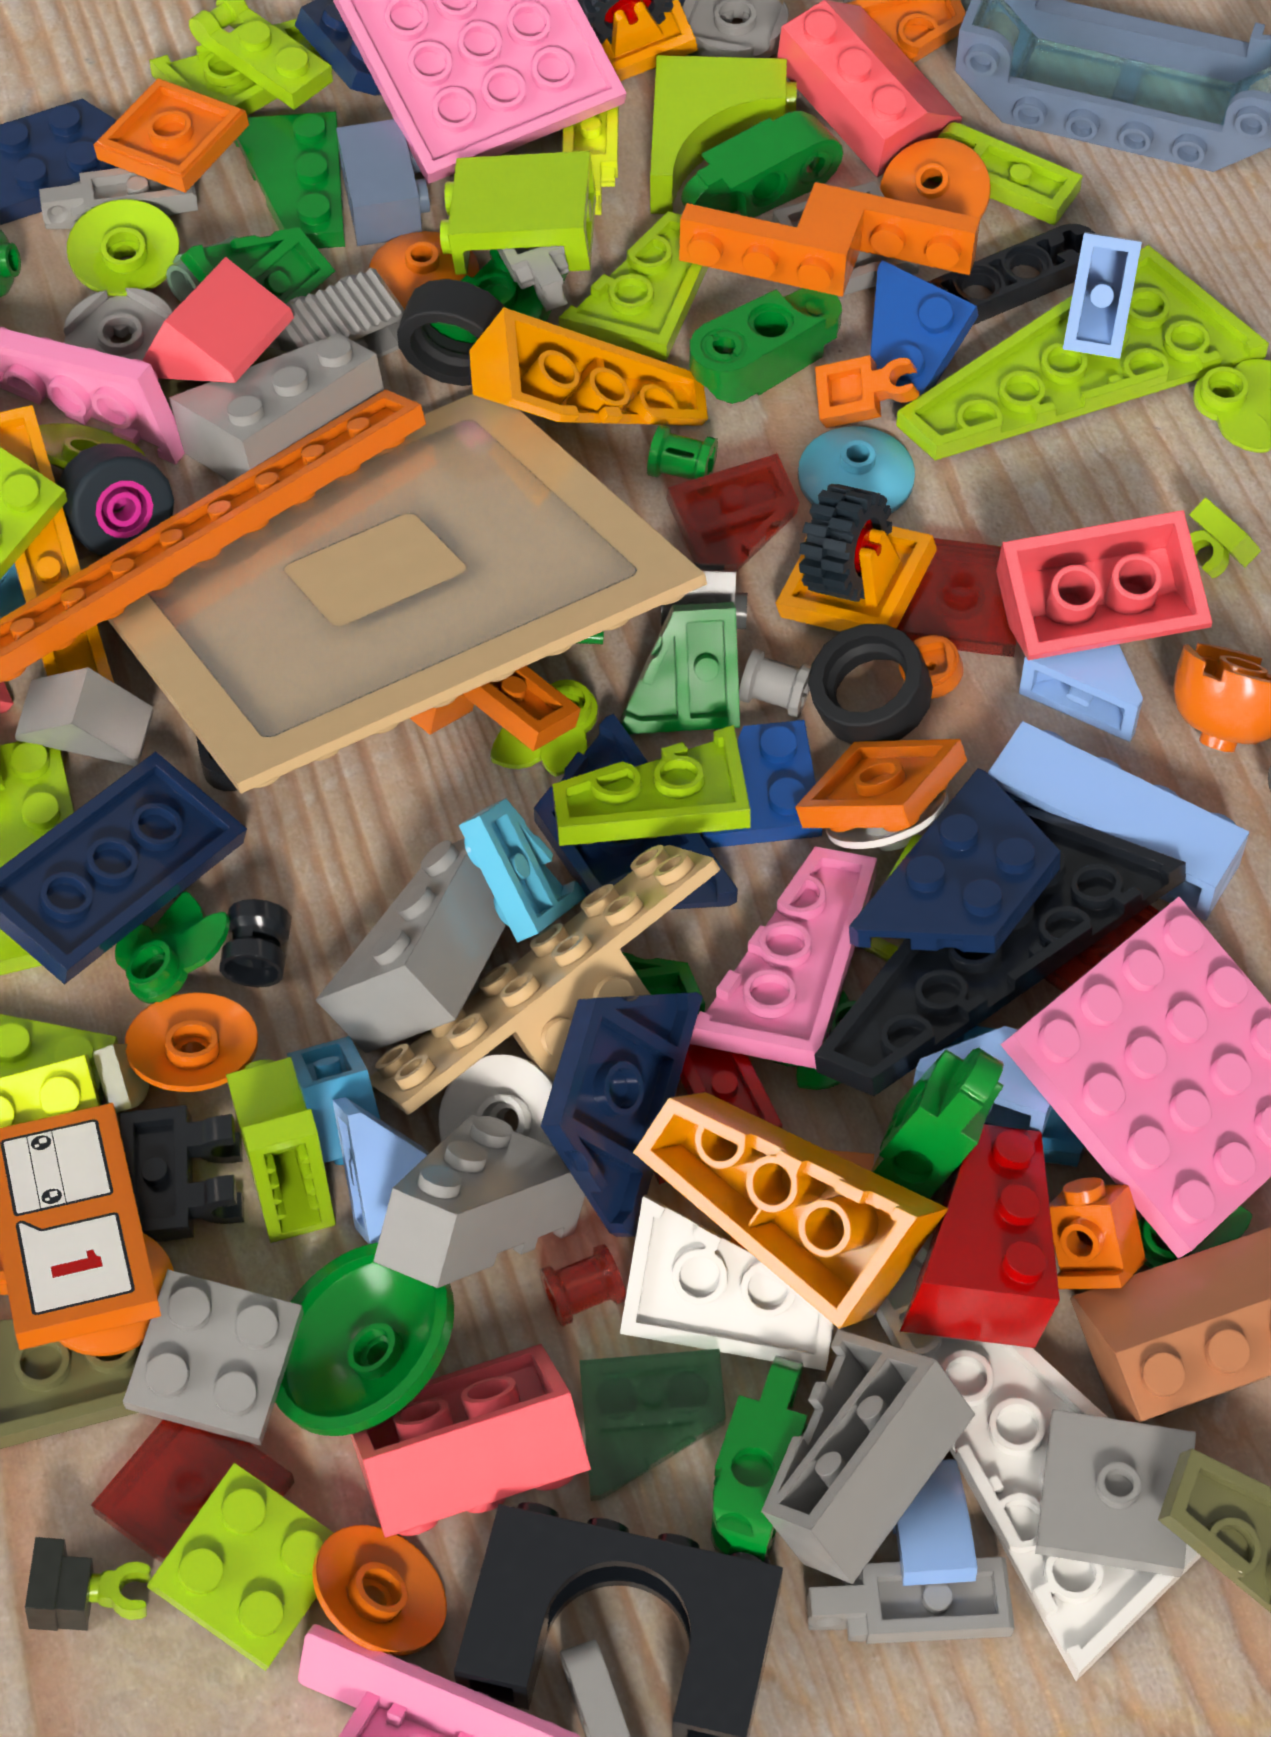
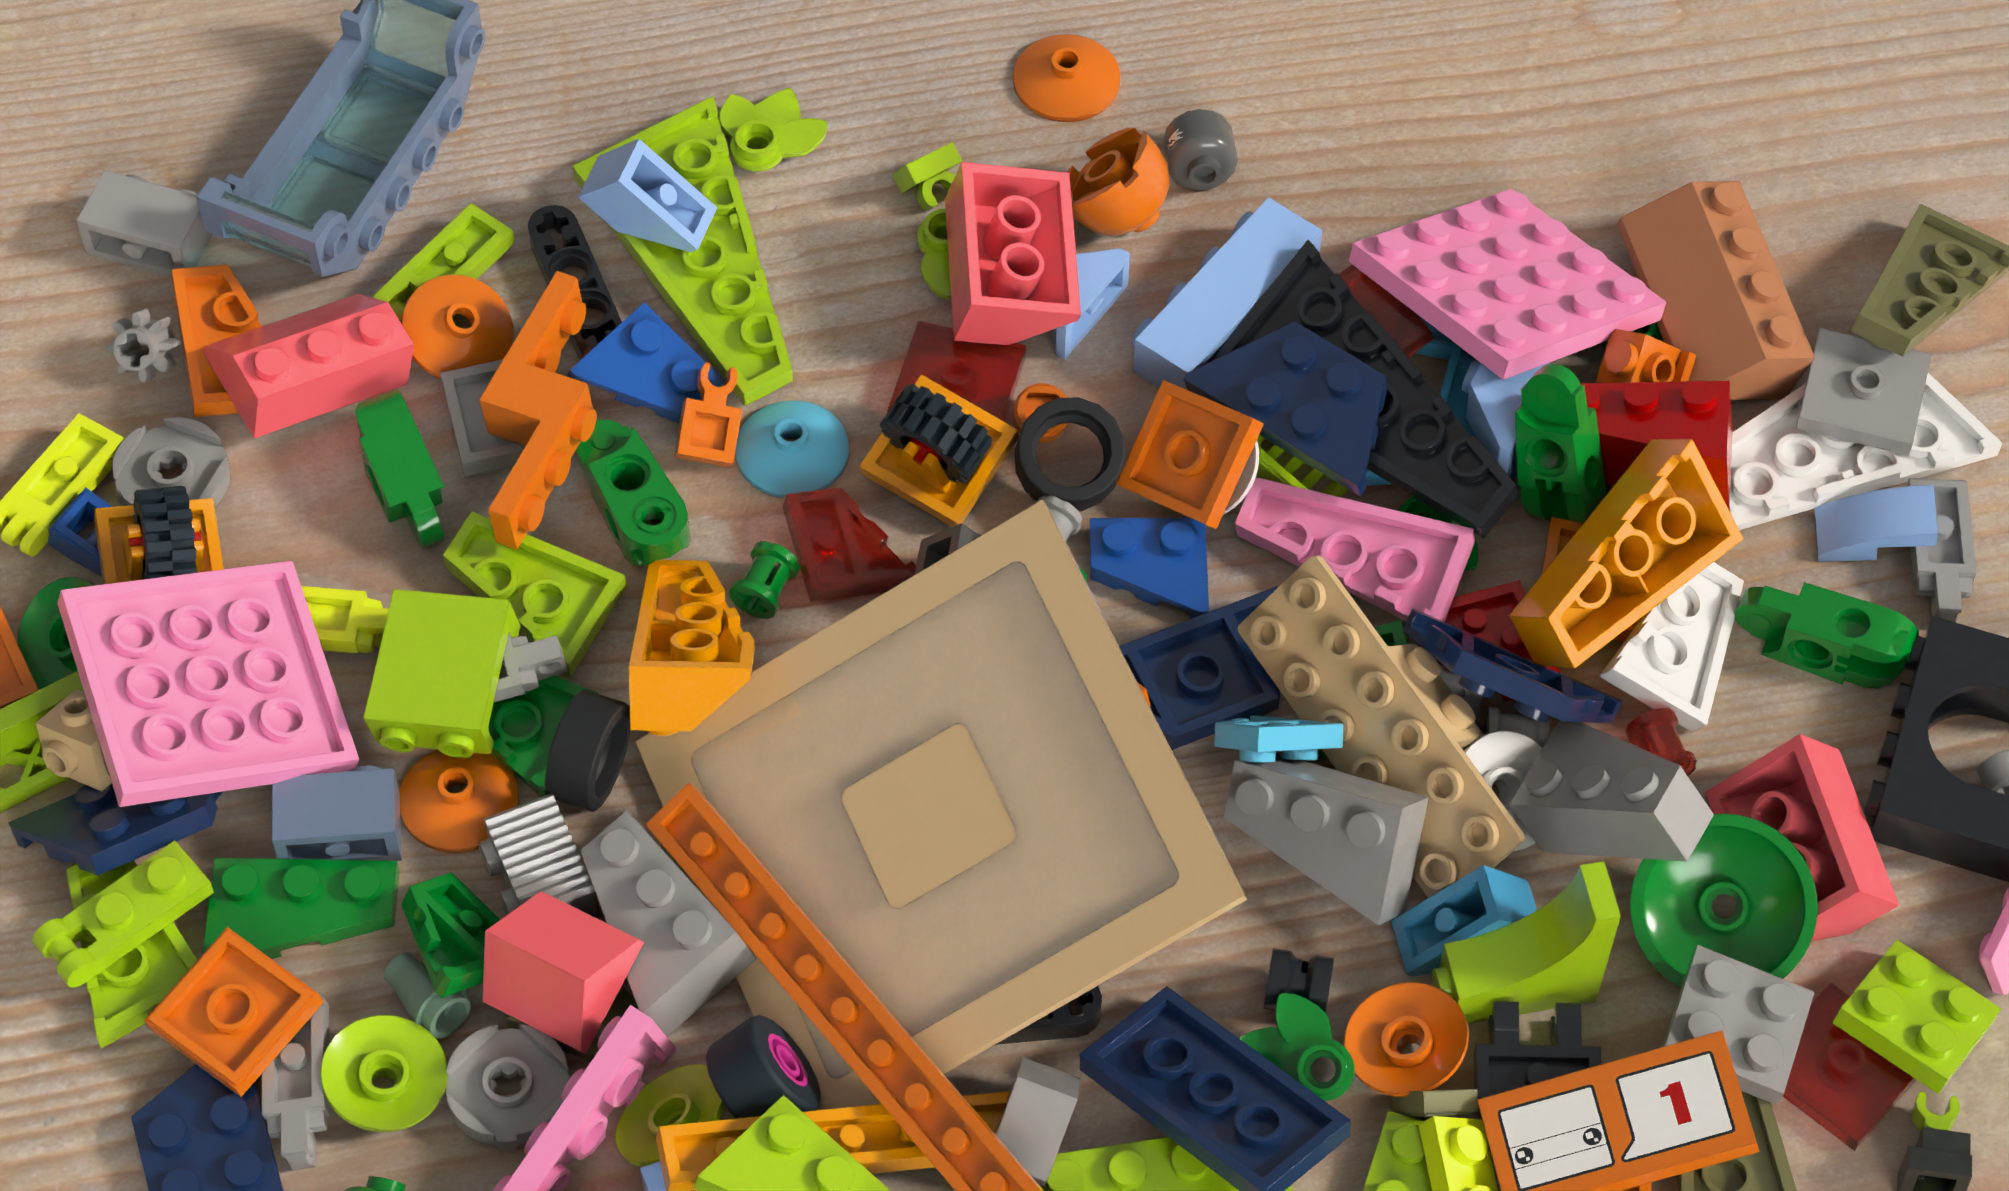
camera: 85 degrees left, 0 degrees up
(373, 1163) = (1552, 868): light blue slope -> none
(379, 1590) = (1943, 915): orange dish -> none
(646, 1412) = (1771, 704): clear green wing -> none
(666, 797) = (1184, 625): lime wing -> none
(704, 104) = (302, 519): lime arch -> none
(865, 1453) = (1836, 541): light grey wedge -> none

